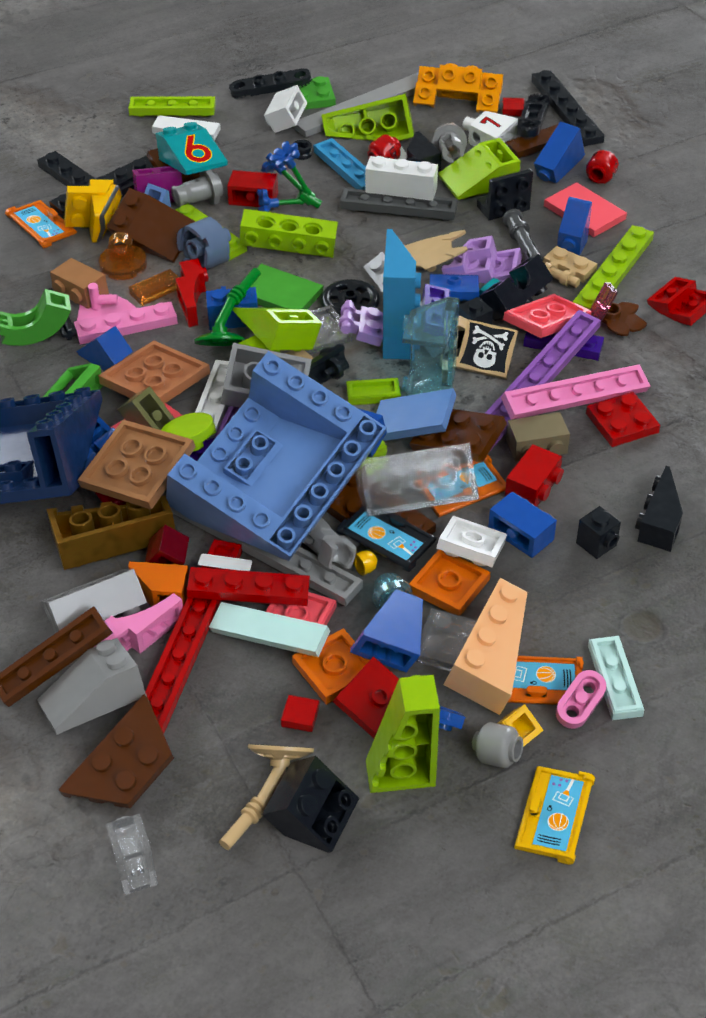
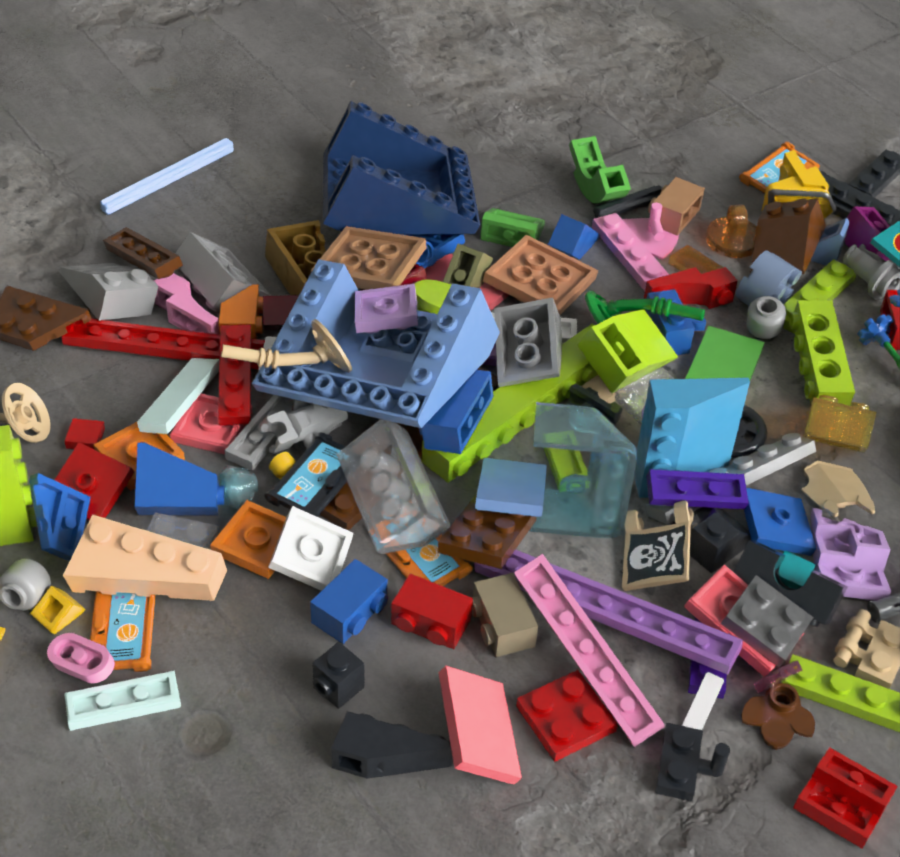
camera: 80 degrees right, 0 degrees up
(224, 446) = (386, 308): none -> lavender plate
(241, 253) = (765, 317): none -> light grey head
(277, 491) = (326, 349): none -> tan dish
(364, 239) = (839, 423): none -> clear yellow slope
(554, 300) = (767, 621): none -> flat silver plate
(614, 349) = (703, 701): none -> white sticker
(644, 456) = (479, 725): none -> coral tile
(661, 368) = (681, 762): none -> black plate

